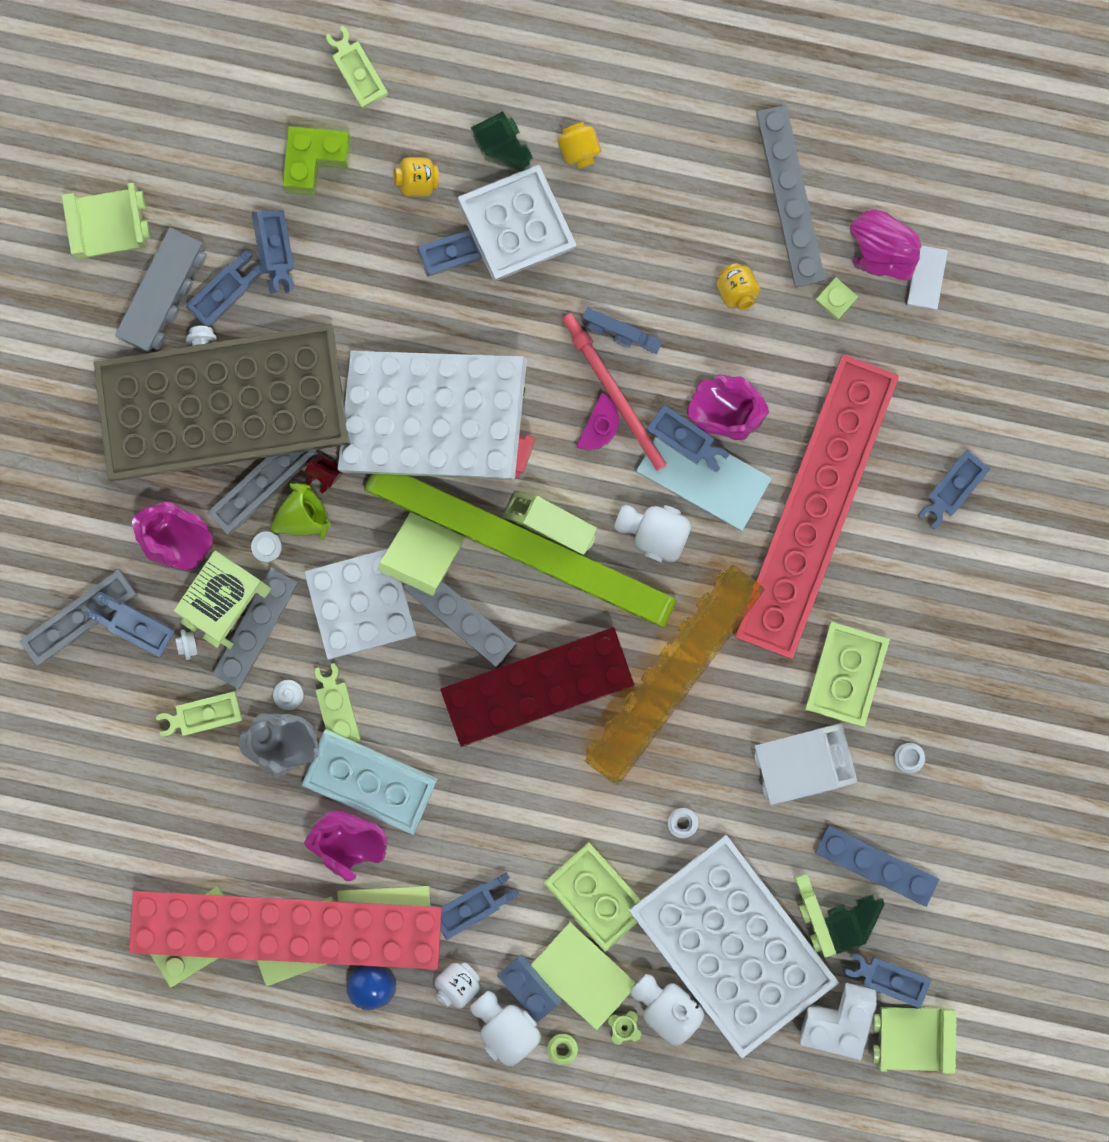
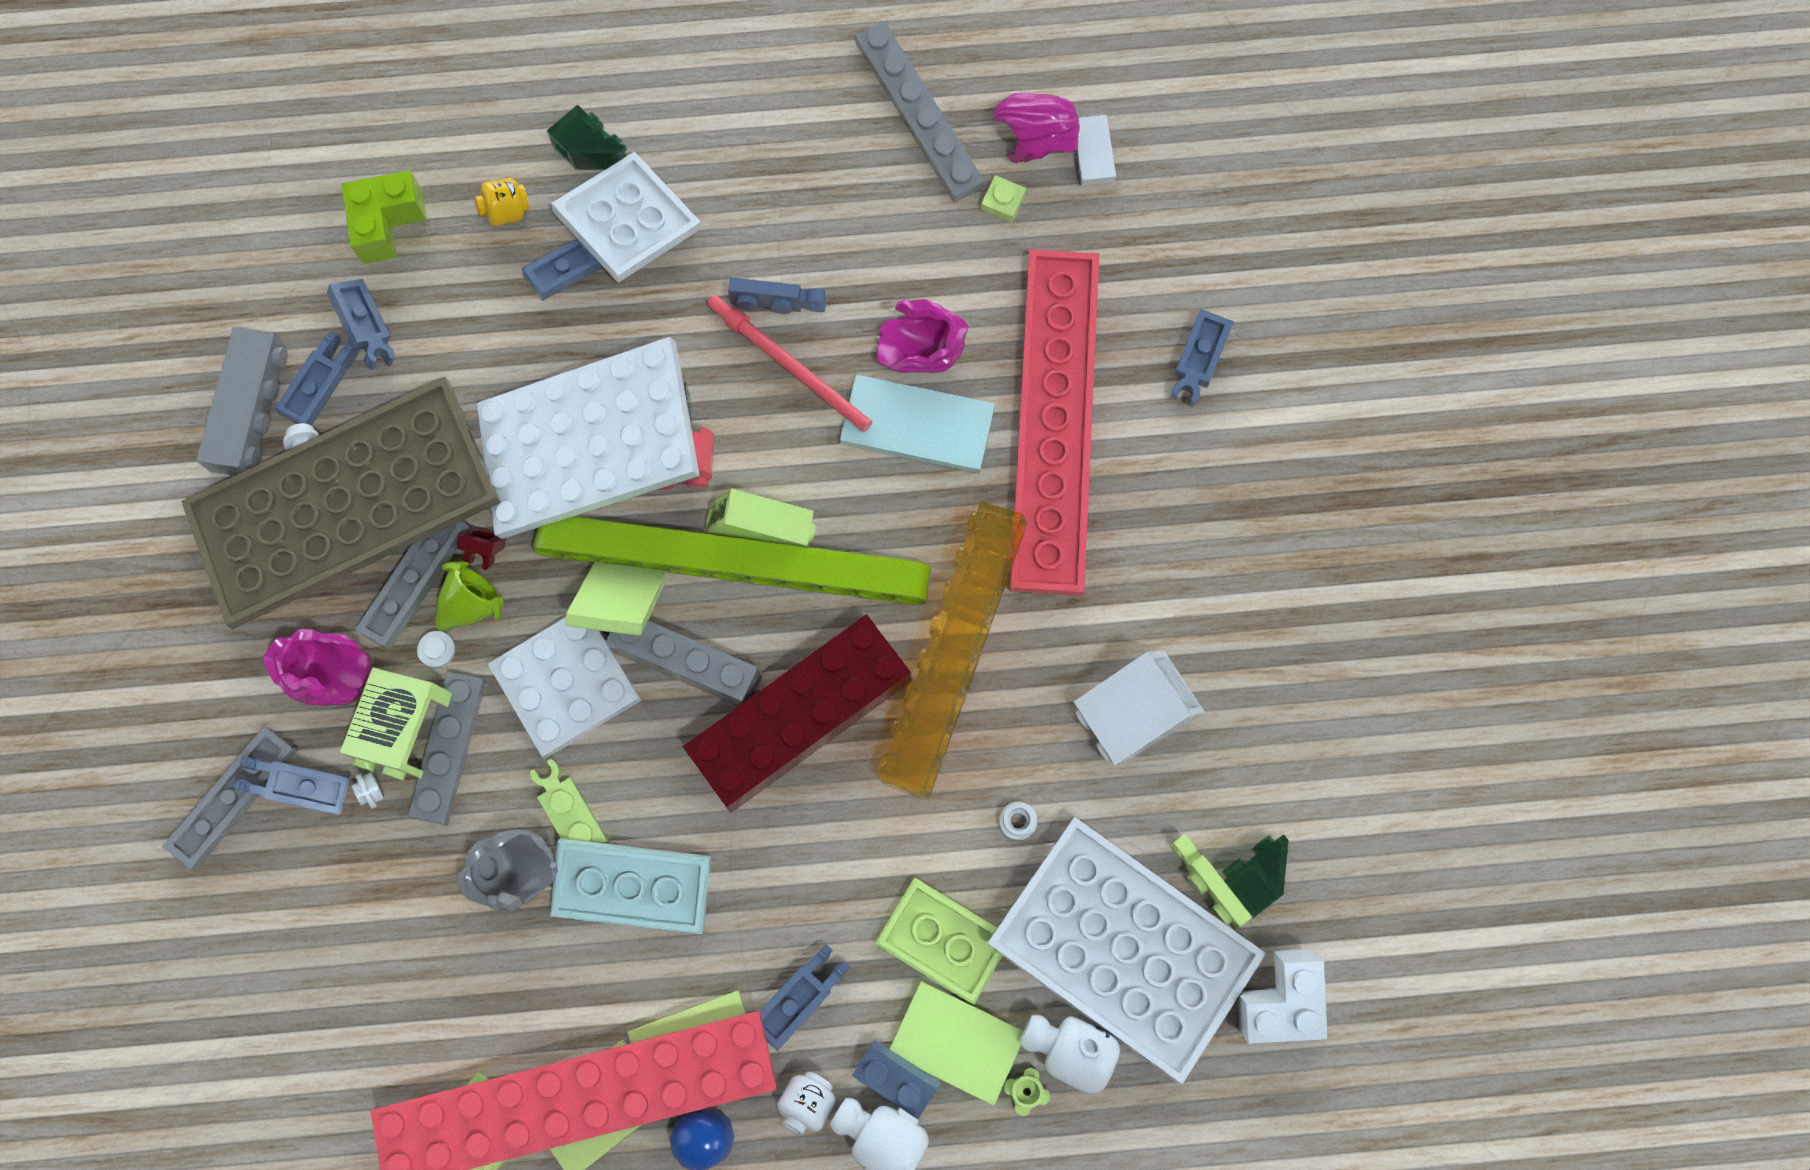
camera: 20 degrees left, 10 degrees down
(106, 222) = (162, 350): yellowish green panel -> none
(203, 715) = (408, 867): yellowish green plate -> none
(288, 695) = (505, 812): white plate -> none
(345, 842) = (620, 967): dark pink hair -> none
(357, 70) = (407, 114): yellowish green plate -> none
(555, 1056) = (965, 1155): yellowish green plate -> none
(579, 145) = (672, 119): yellow head -> none
(601, 425) = (785, 404): dark pink plate -> none
(658, 532) = (885, 495): white piece -> none
(685, 437) = (884, 385): sand blue plate -> none
(738, 286) = (891, 213): yellow head -> none
(847, 674) = (1152, 592): yellowish green plate -> none
(877, 866) = (1261, 801): sand blue plate -> none
(891, 980) = (1326, 931): sand blue plate -> none
(909, 758) = (1255, 665): white plate -> none
(915, 1039) = (1381, 994): yellowish green panel -> none

